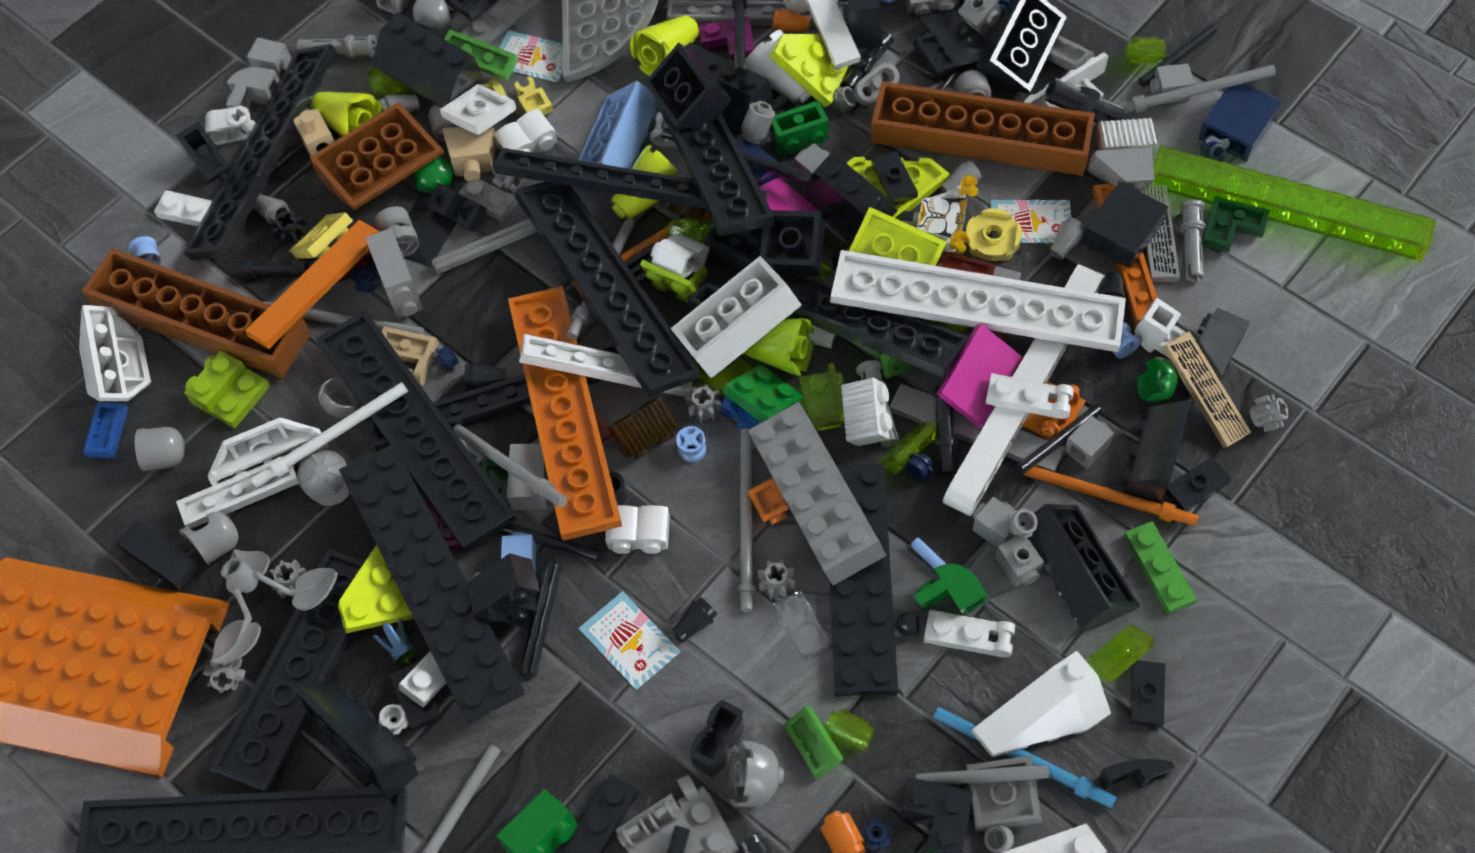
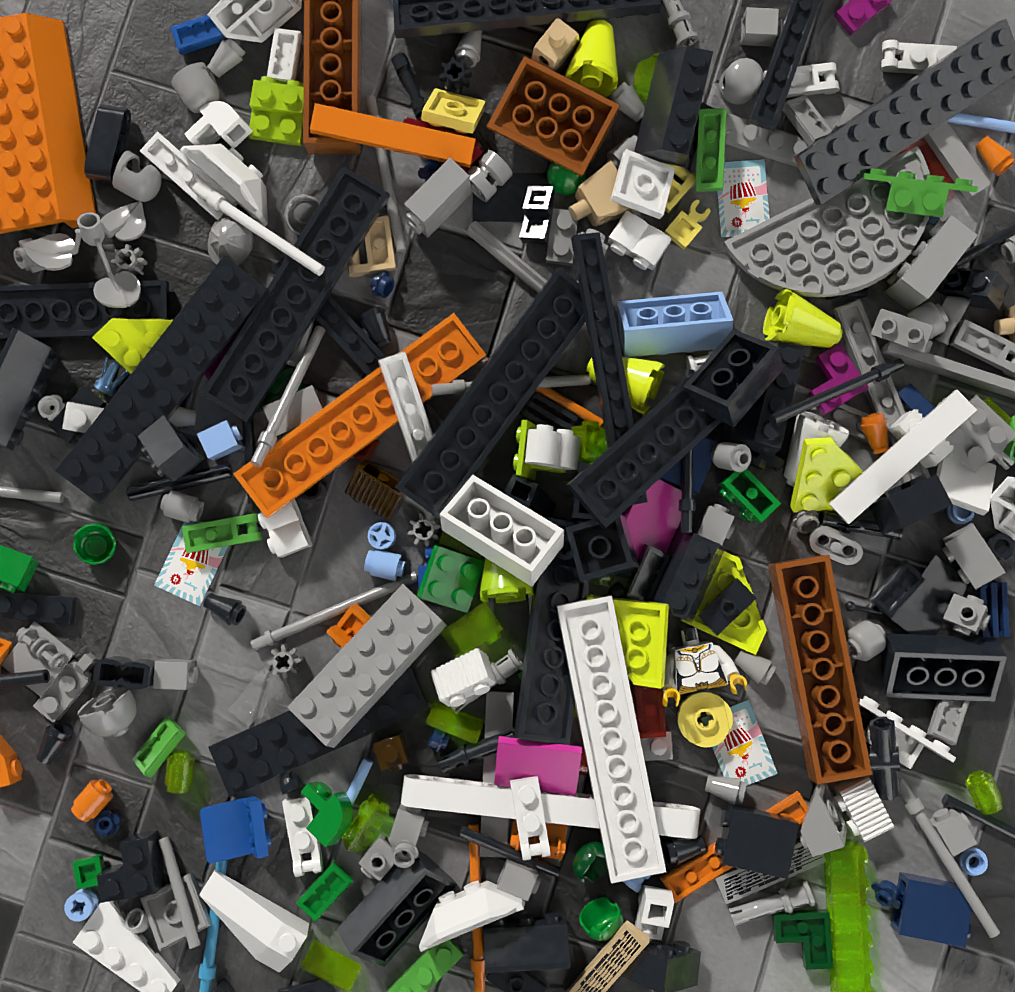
camera: 65 degrees right, 25 degrees up
(144, 411) = (226, 57): none -> light grey cone
(175, 362) = (284, 55): none -> white plate
(204, 435) = (217, 122): none -> white brick
(562, 722) = (94, 544): none -> green hair
(568, 621) = (182, 507): none -> light grey brick
(614, 595) = (220, 533): none -> bright green plate
(720, 451) = (384, 564): none -> light blue brick
(743, 691) = (175, 674): none -> light grey brick
(914, 509) = (391, 751): none -> dark brown brick
(936, 687) = (235, 829): none -> blue bracket
(973, 556) = (369, 814): none -> clear neon green hinge
(1037, 630) = (325, 891): none -> green plate
(1095, 370) = (590, 862): none -> dark green hair
(1105, 494) = (467, 911): none -> white wedge
(1206, 74) = (980, 863): none -> light blue plate

